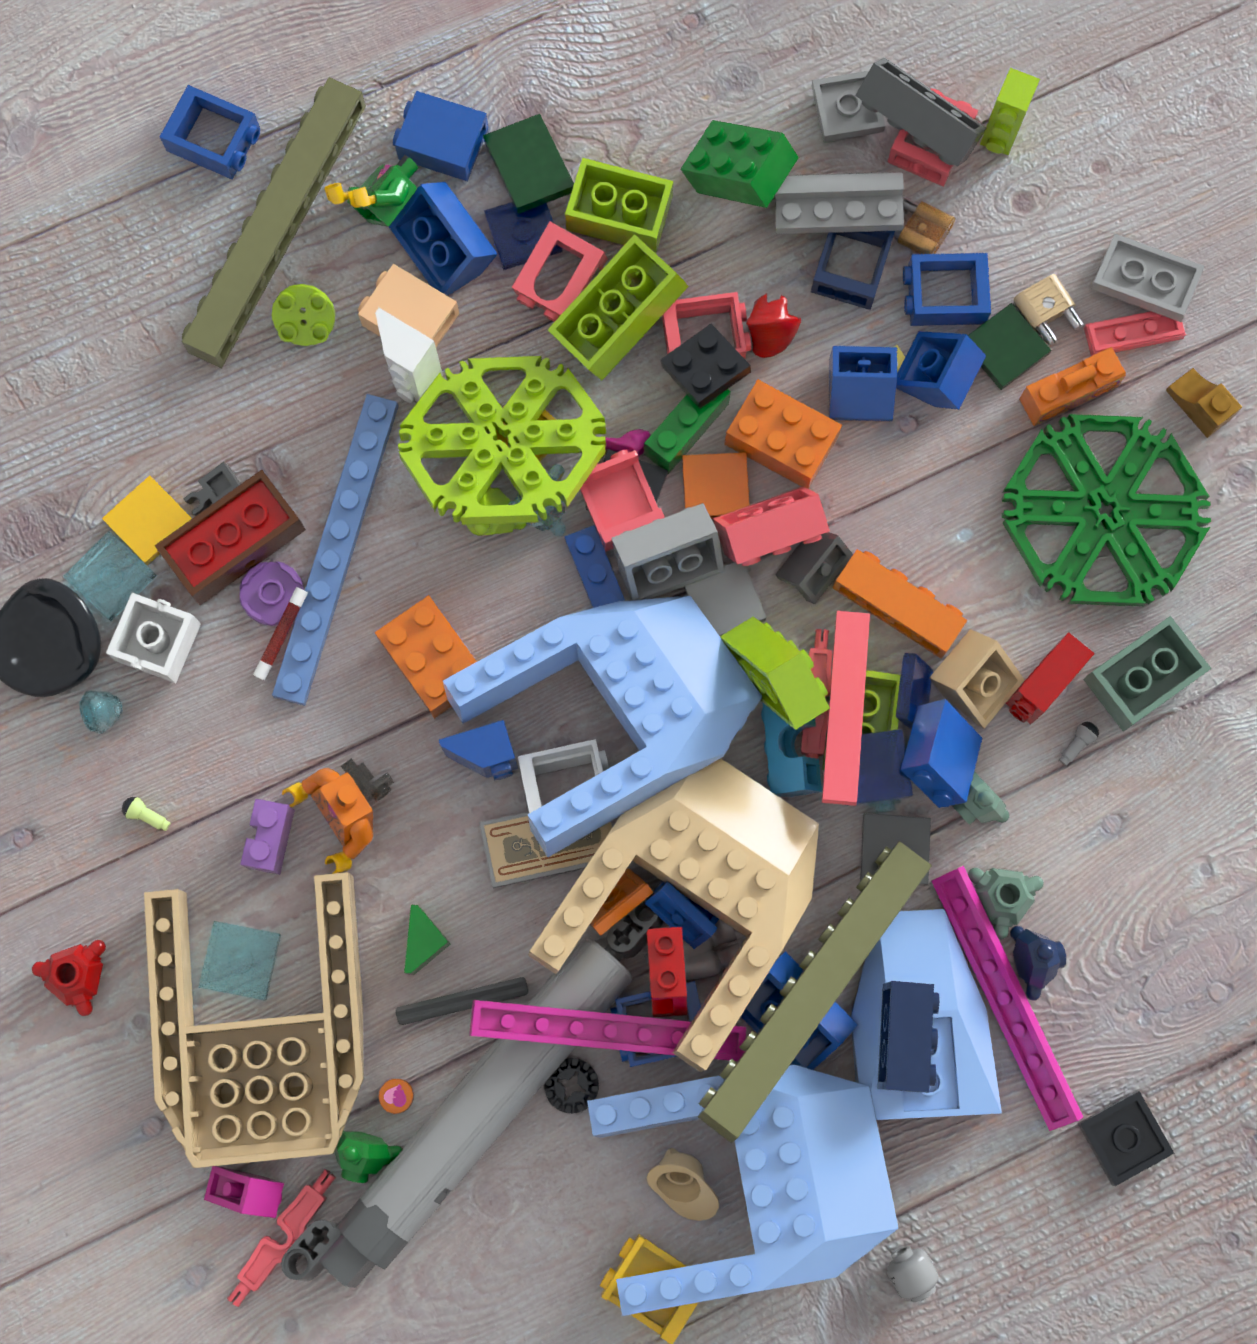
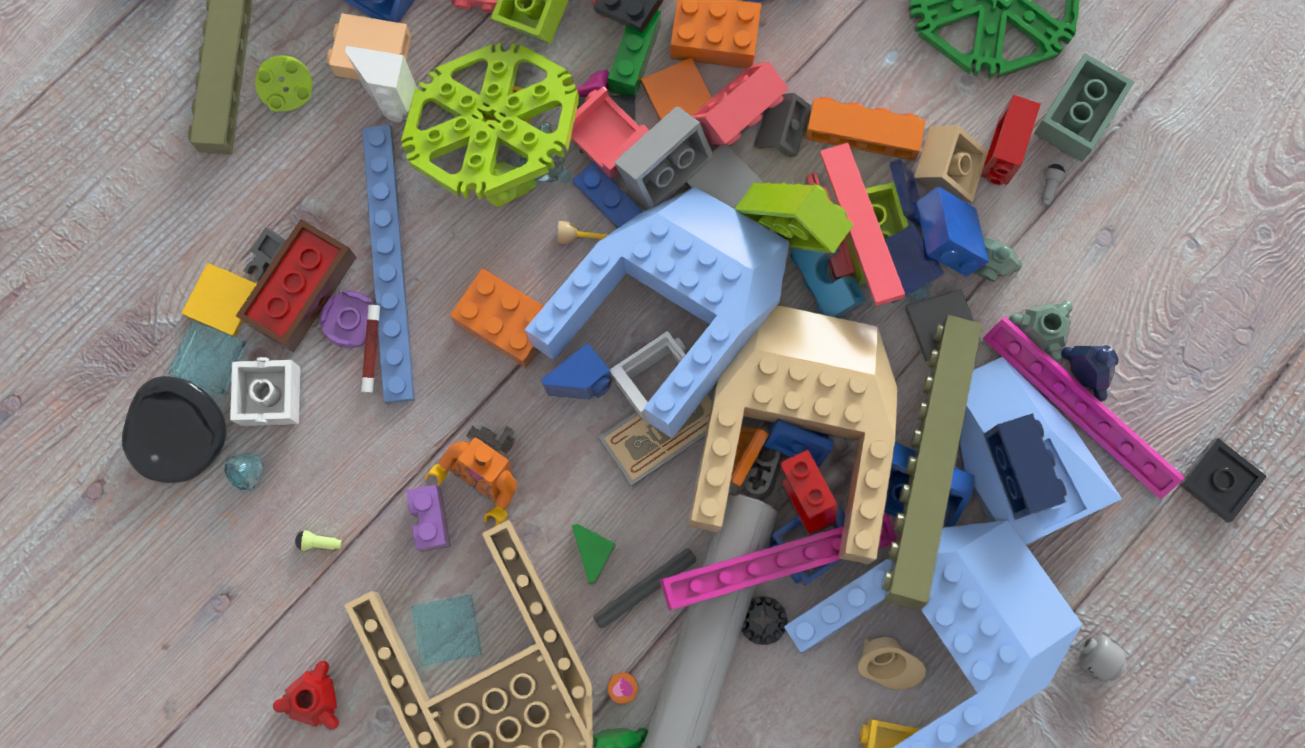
camera: 20 degrees left, 0 degrees up
(536, 592) = (568, 233): none -> tan hinge

